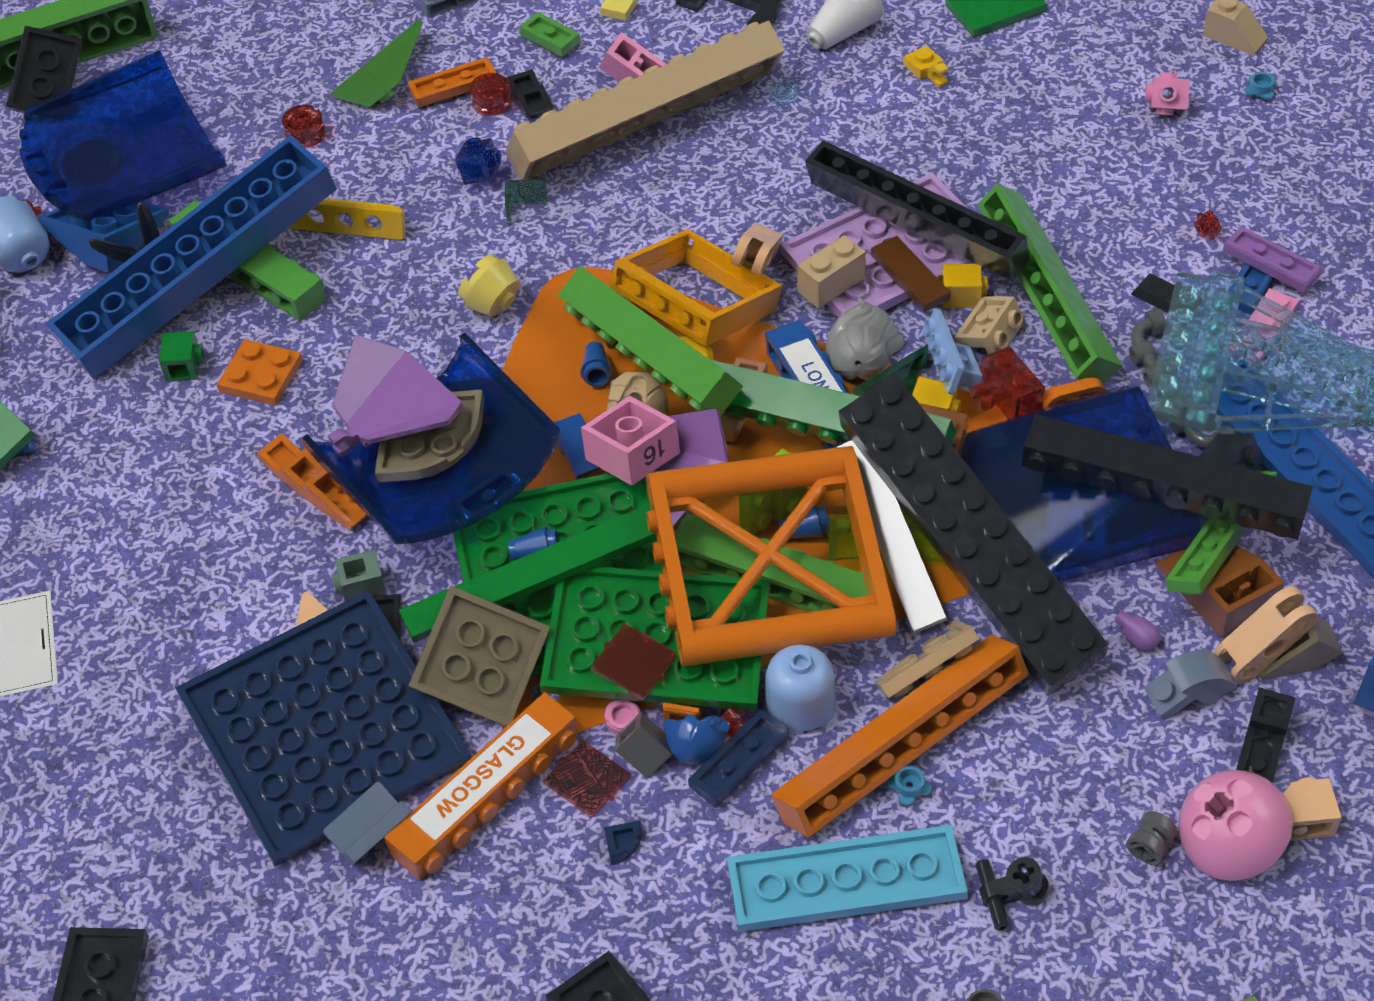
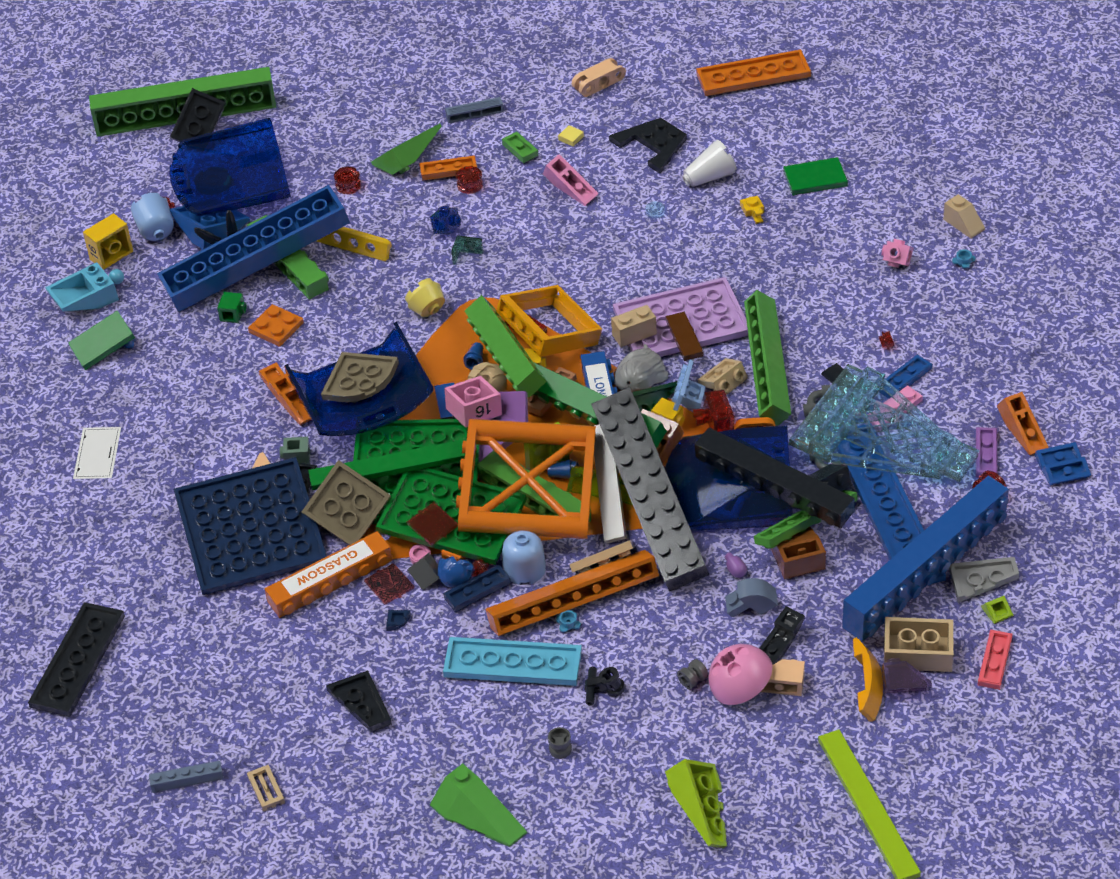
camera: 15 degrees right, 5 degrees down
(365, 822) = (255, 580): sand blue panel -> none
(387, 397) = (340, 349): medium lavender panel -> none
(529, 94) = (493, 183): black slope -> none
(532, 542) = (397, 447): blue cone -> none
(643, 100) = (560, 199): tan brick -> none
(757, 248) = (594, 303): light nougat piece -> none
(918, 210) = (700, 297): black brick -> none
(965, 285) = (715, 349): yellow brick -> none
(1267, 634) = (803, 578): light nougat piece -> none
(1272, 259) = (916, 368): medium lavender tile -> none
(1307, 653) = (823, 591): dark tan slope -> none

